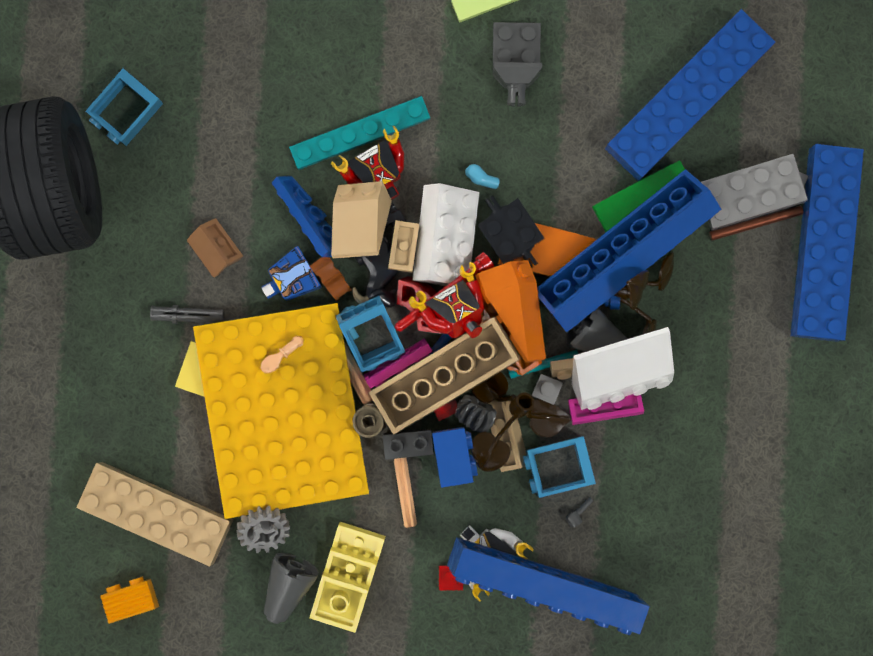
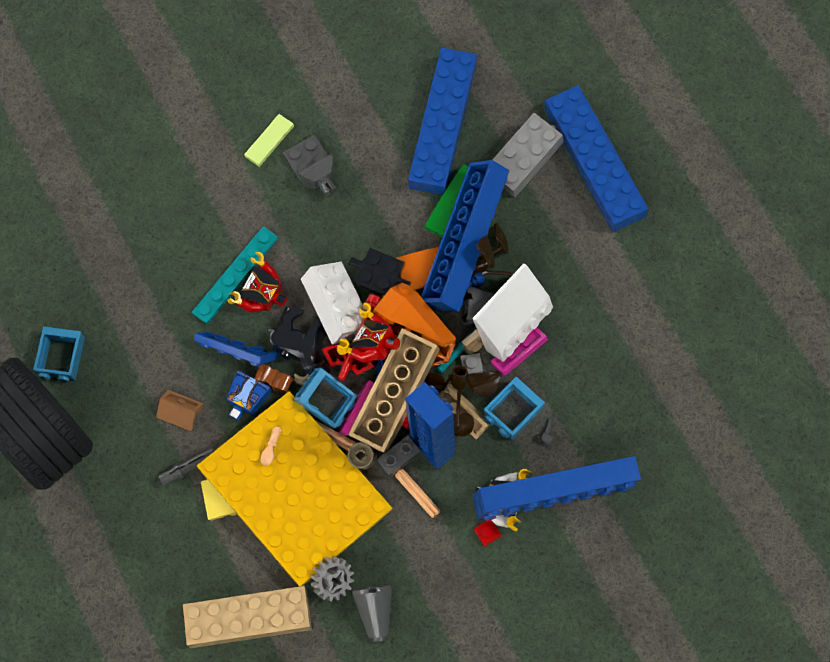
camera: 30 degrees left, 15 degrees down
(347, 577) = (414, 577): light yellow slope -> none
(359, 219) = (269, 325): tan slope -> none
(403, 246) = (312, 325): tan plate -> none
(480, 178) = (336, 254): medium azure arm -> none
(755, 223) = (539, 176): copper bar -> none

